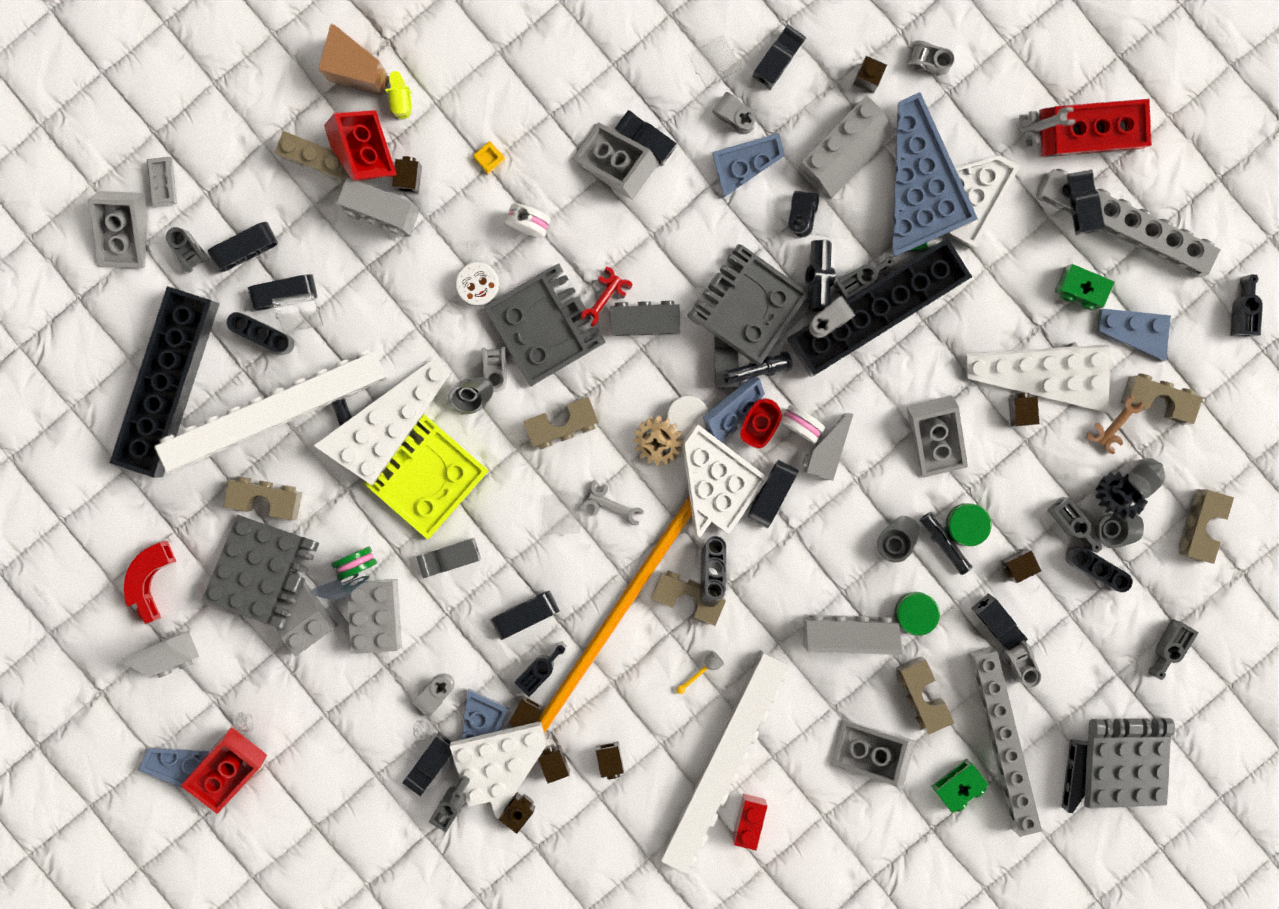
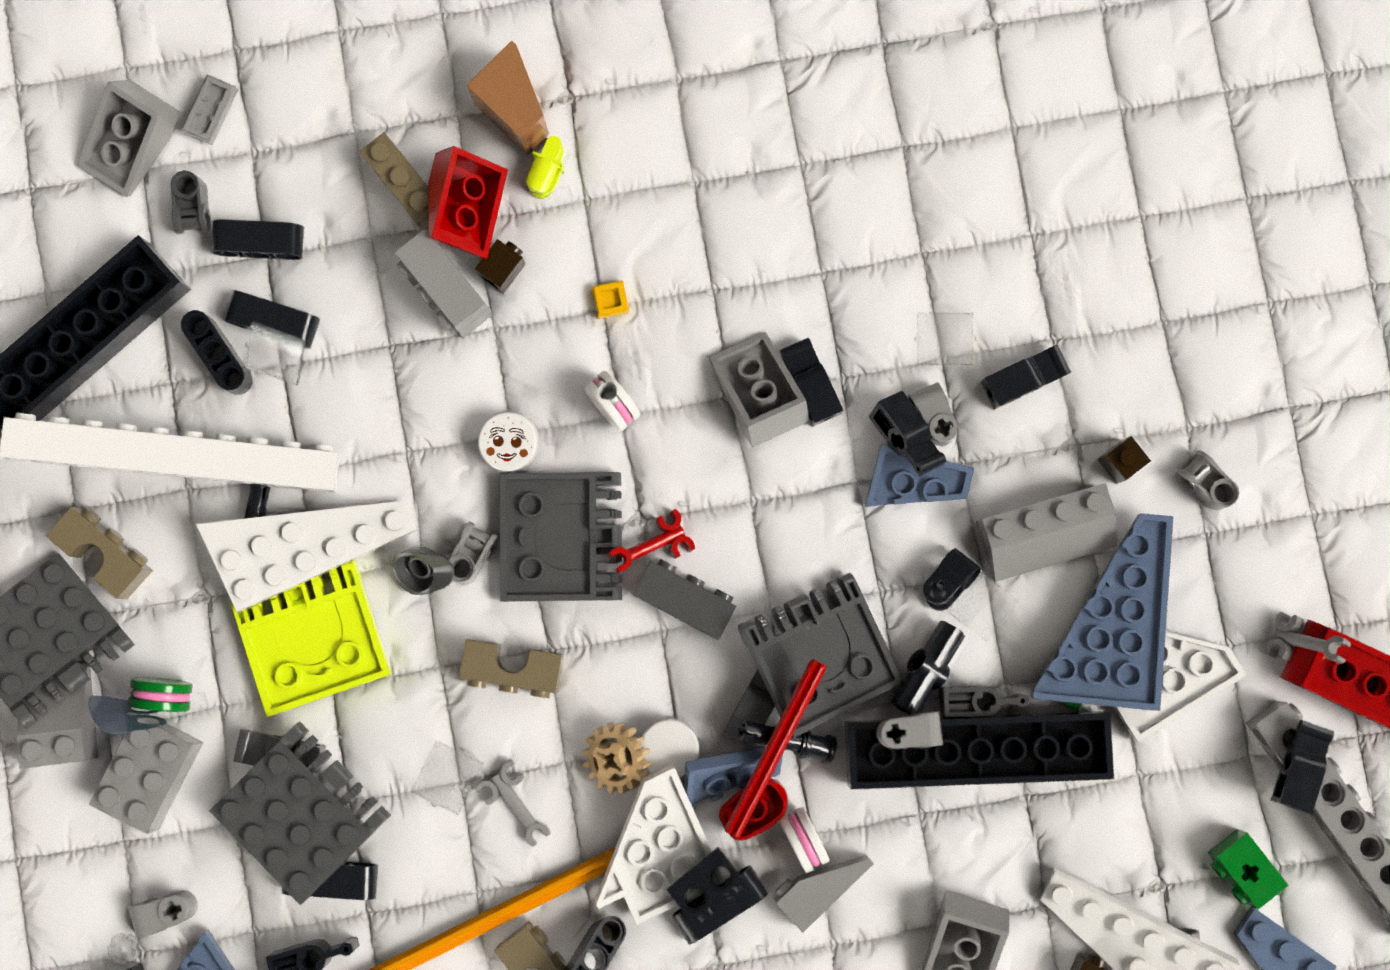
camera: 30 degrees right, 5 degrees down
(483, 589) = (295, 817): none -> dark grey hinge
(724, 134) = (907, 432): none -> black piece
(752, 482) = (701, 878): none -> black brick
(753, 376) = (775, 748): none -> red axle

